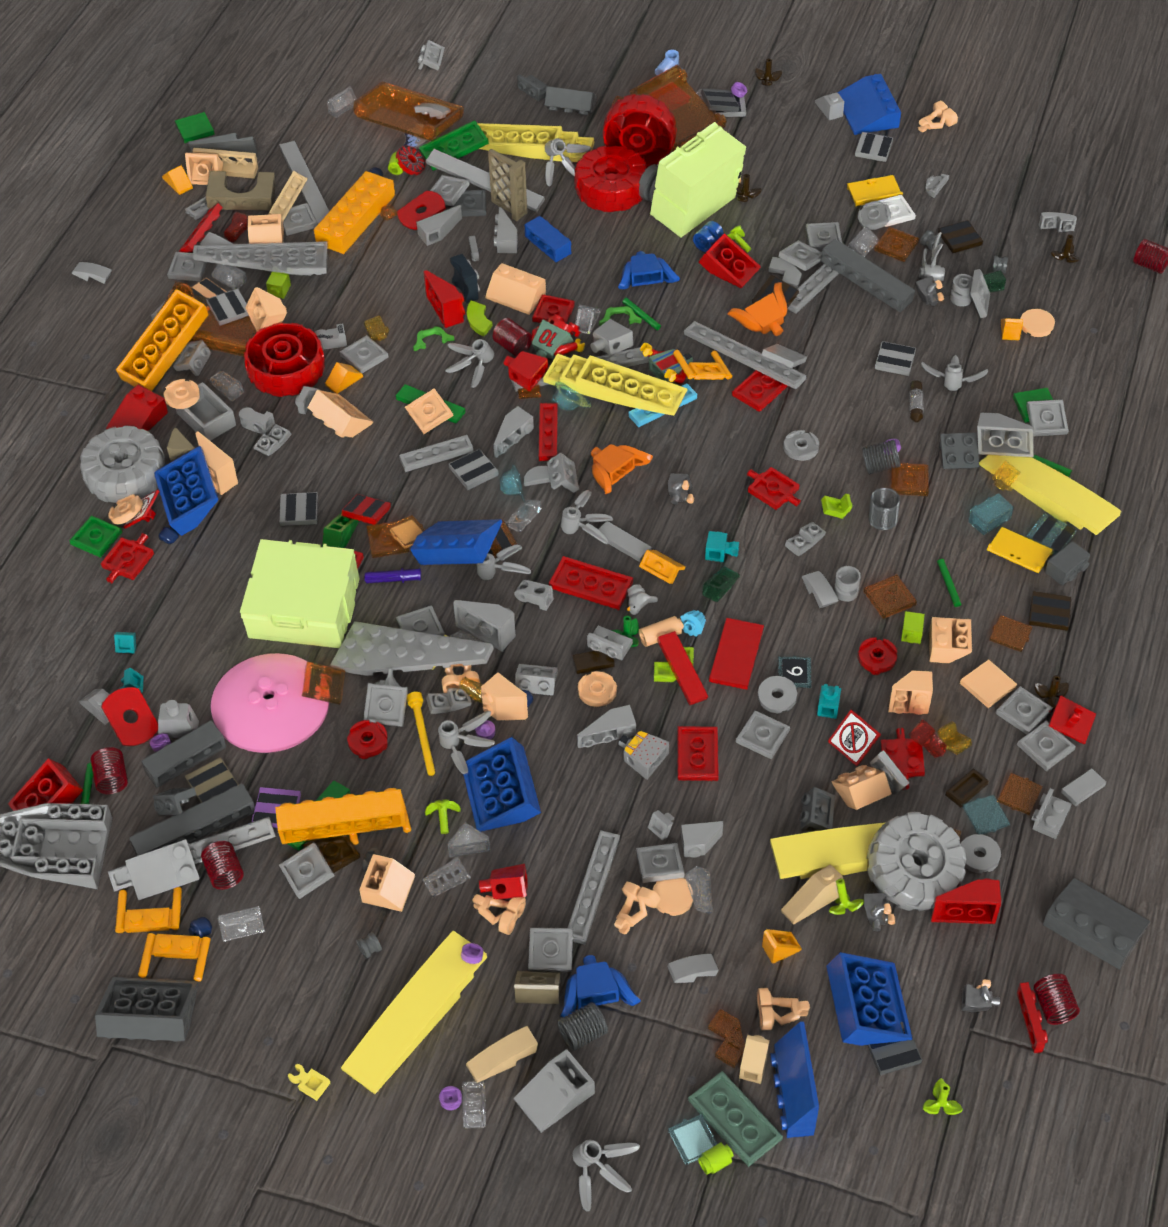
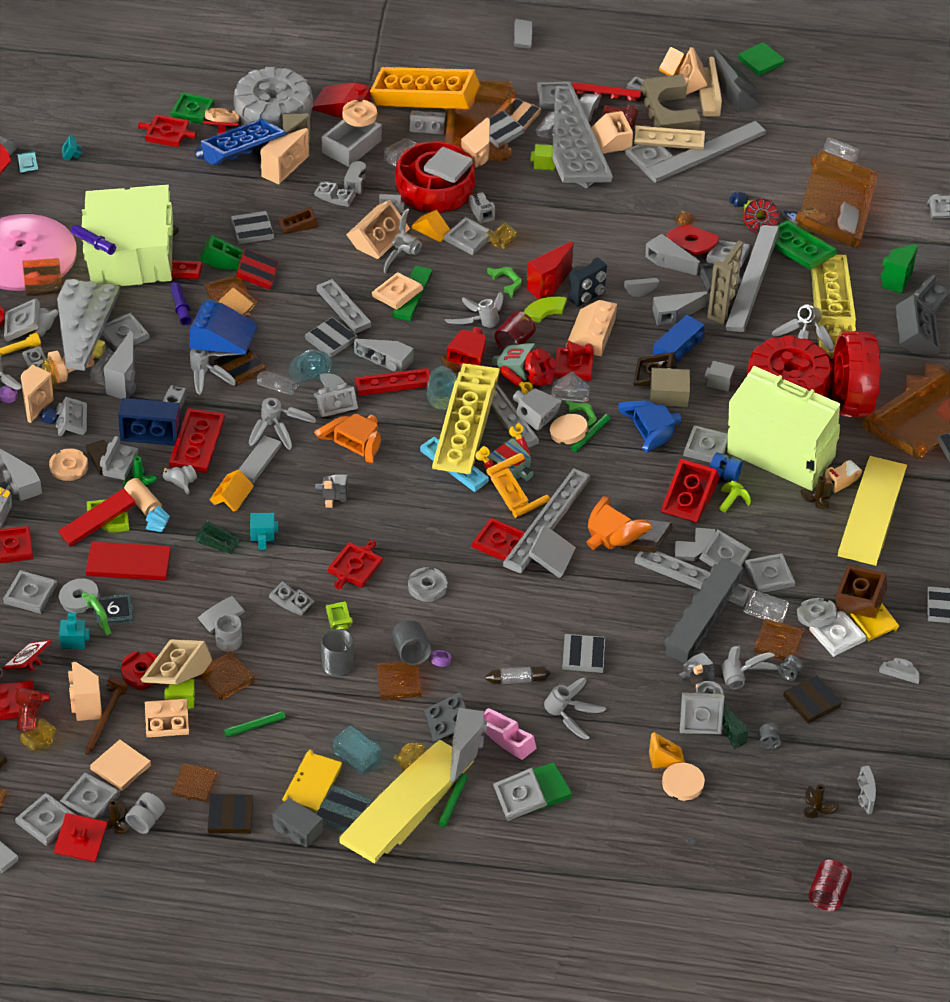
camera: 75 degrees right, 5 degrees down
(288, 337) = (448, 164): none -> light grey tile
(303, 460) = (304, 221): none -> reddish brown slope
(325, 608) = (97, 241): none -> dark purple axle
(354, 211) = (667, 190): light orange brick -> none
(367, 394) = (403, 242): none -> light grey plant
(507, 92) = (898, 268): none -> green slope
(544, 304) = (574, 349): none -> red piece
(567, 610) = (149, 421): none -> dark blue brick
(582, 257) = (645, 366): none -> dark brown slope
(597, 221) = (720, 376): none -> light grey brick
(611, 247) = (670, 387): none -> dark tan slope
(640, 322) = (569, 428): none -> light nougat tile
(672, 246) = (705, 443): none -> light grey tile
(785, 167) = (872, 511): none -> light yellow slope
(819, 677) = (91, 600): none -> bright green helmet
(868, 180) = (861, 591): none -> reddish brown brick
(892, 619) = (178, 662): none -> tan slope
(898, 674) = (118, 687): none -> reddish brown piece
(969, 421) = (508, 735): none -> bright pink slope
(1050, 665) = (145, 813): none -> light grey wheel

